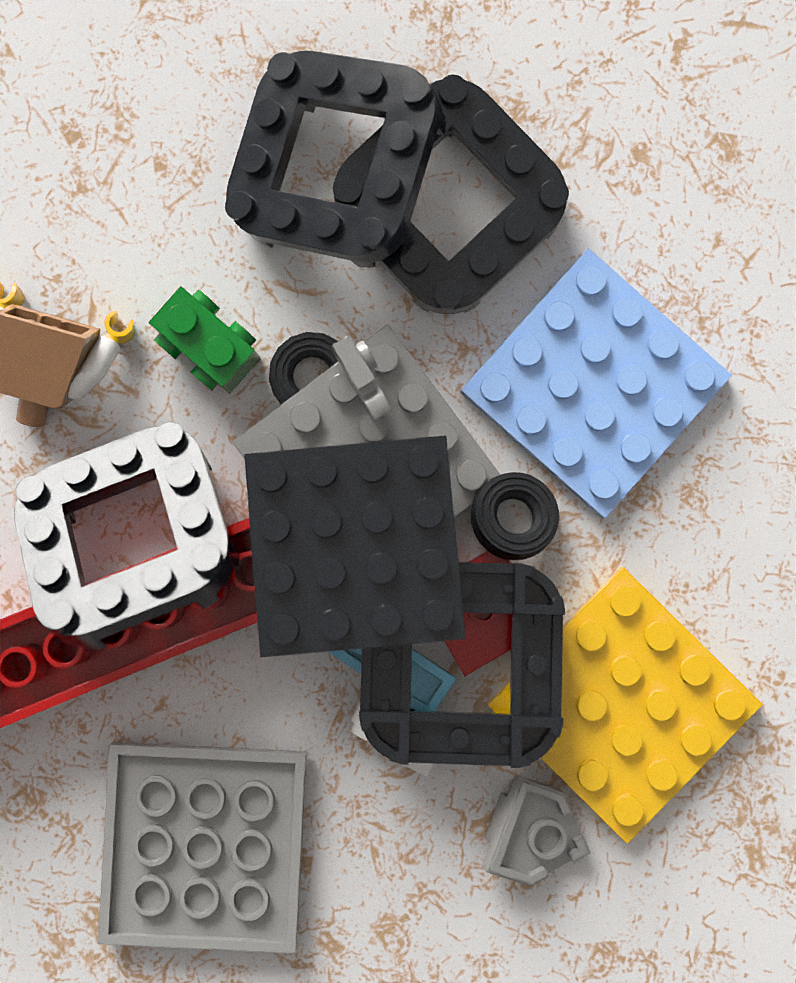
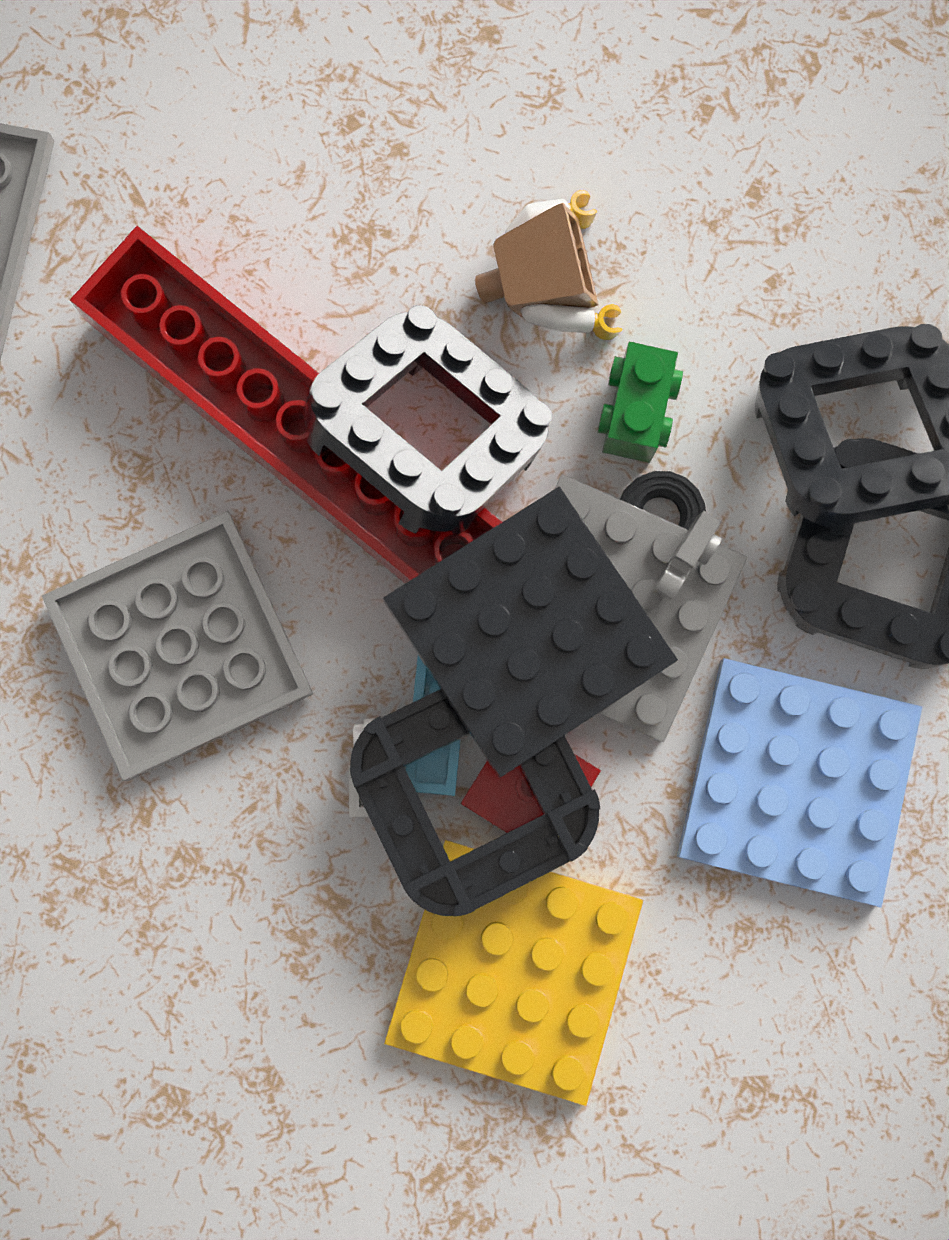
camera: 60 degrees right, 5 degrees down
(529, 491) = (664, 763): black tyre -> none
(532, 833) = (347, 946): light grey plate -> none

